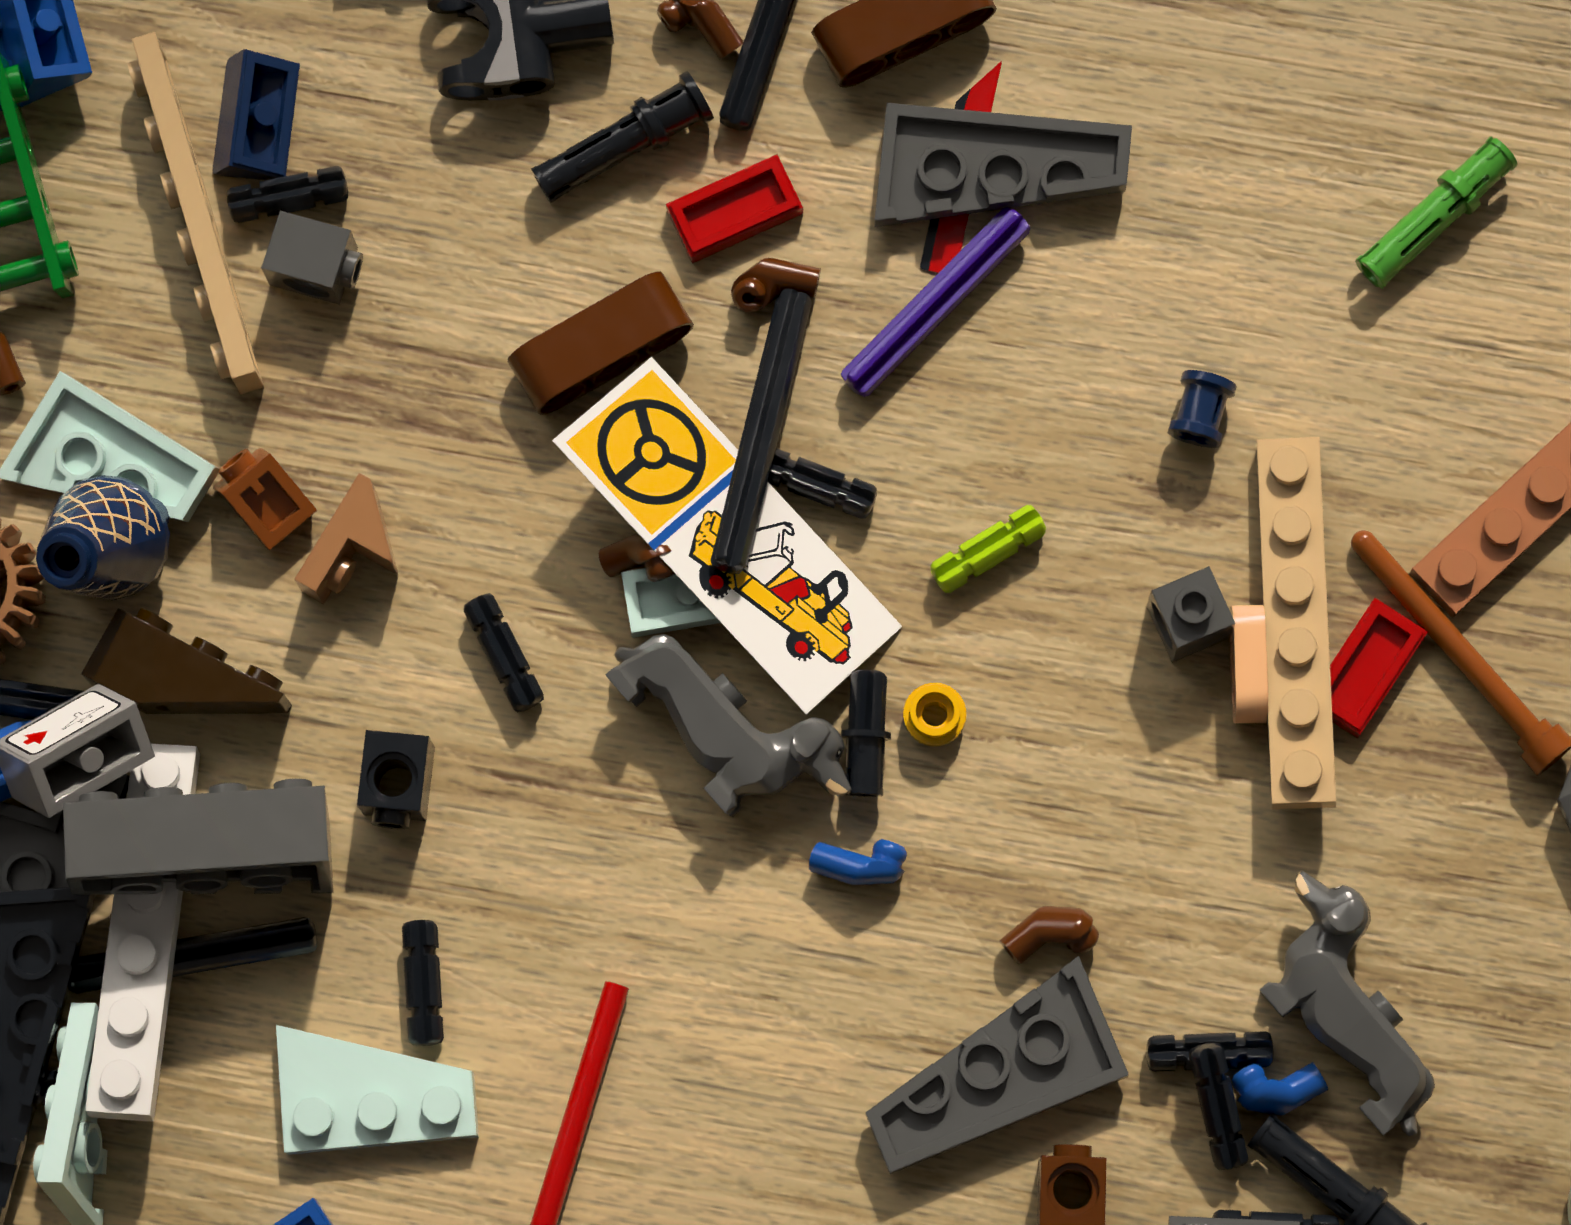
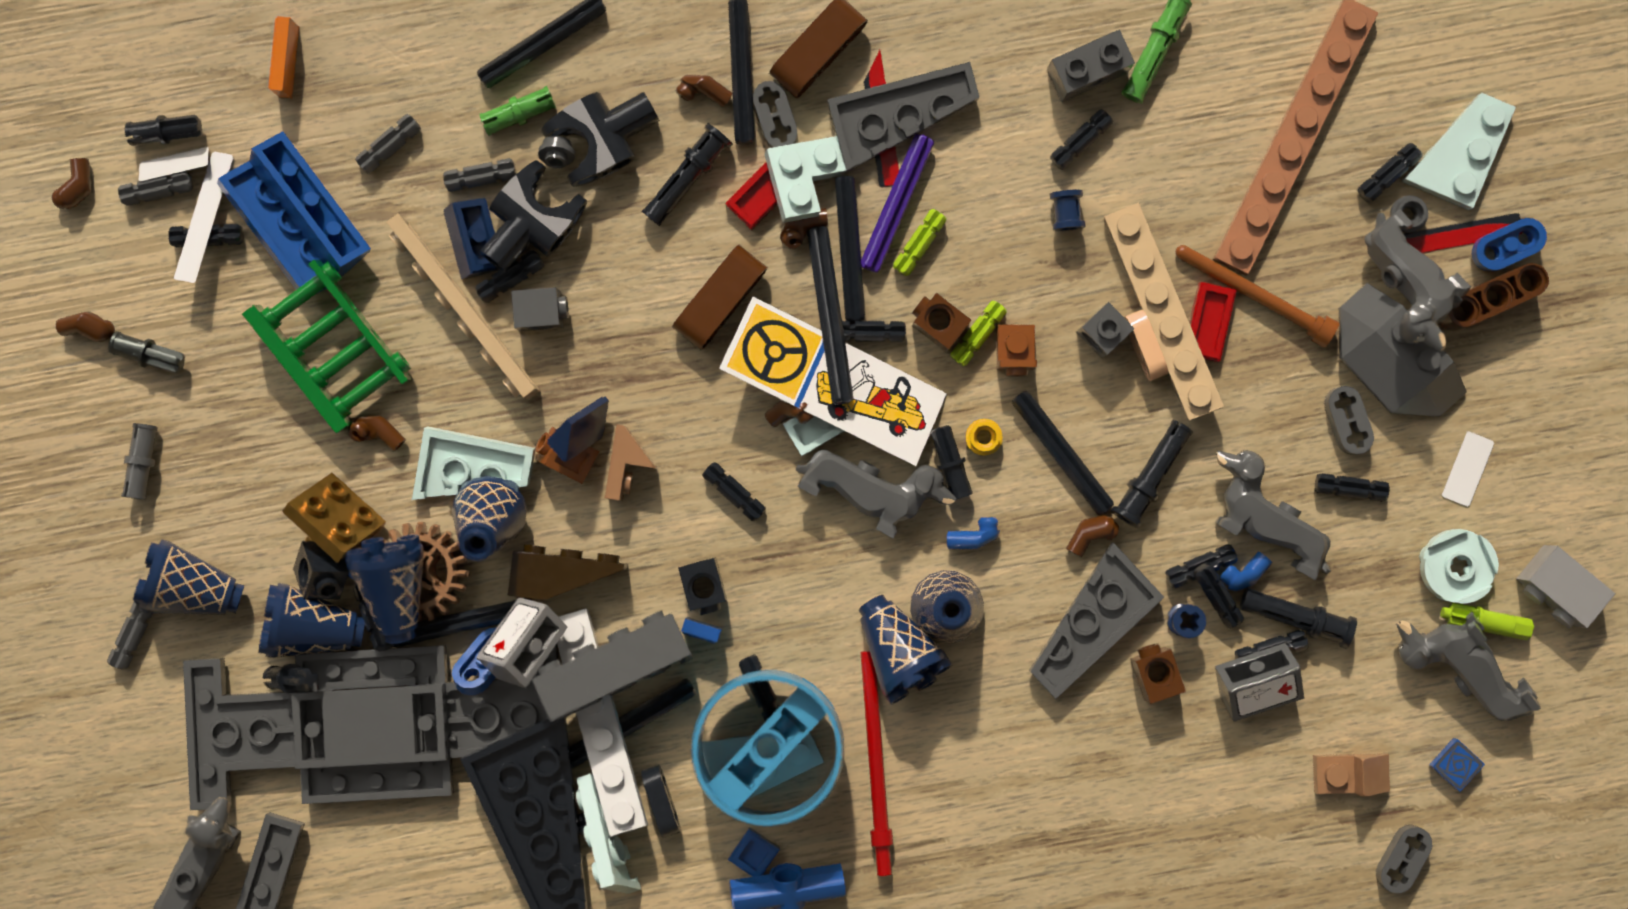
camera: 25 degrees left, 10 degrees up
(190, 1097) = (661, 801): none -> black beam
(300, 459) = (580, 430): none -> dark blue slope
(304, 26) = (479, 175): none -> dark grey axle
(347, 1076) = (750, 768): none -> dark azure cylinder
(351, 118) = (528, 220): none -> black connector
(364, 848) = (701, 630): none -> blue tile
(436, 32) = (556, 152): none -> dark grey plate
(667, 999) = (900, 650): none -> dark blue cone
(774, 987) = (932, 597): none -> dark blue cone
(782, 101) = (783, 113): none -> dark grey beam
(794, 189) = (795, 169): none -> light aqua plate
(834, 344) = (850, 248): none -> black axle
(933, 533) = (947, 336): none -> reddish brown brick
(948, 374) = (919, 242): none -> lime axle
(1038, 595) = (1016, 349): none -> dark orange bracket
(1052, 786) = (1062, 452): none -> black axle
(1159, 1108) = (1198, 620): none -> dark blue bush
(1161, 889) = (1144, 488): none -> black pin
(1265, 309) = (1081, 139): none -> black axle
(1319, 199) = (1090, 65): none -> dark grey brick
(1503, 1016) = (1352, 487): none -> black axle
(1553, 906) = (1357, 417): none -> dark grey beam

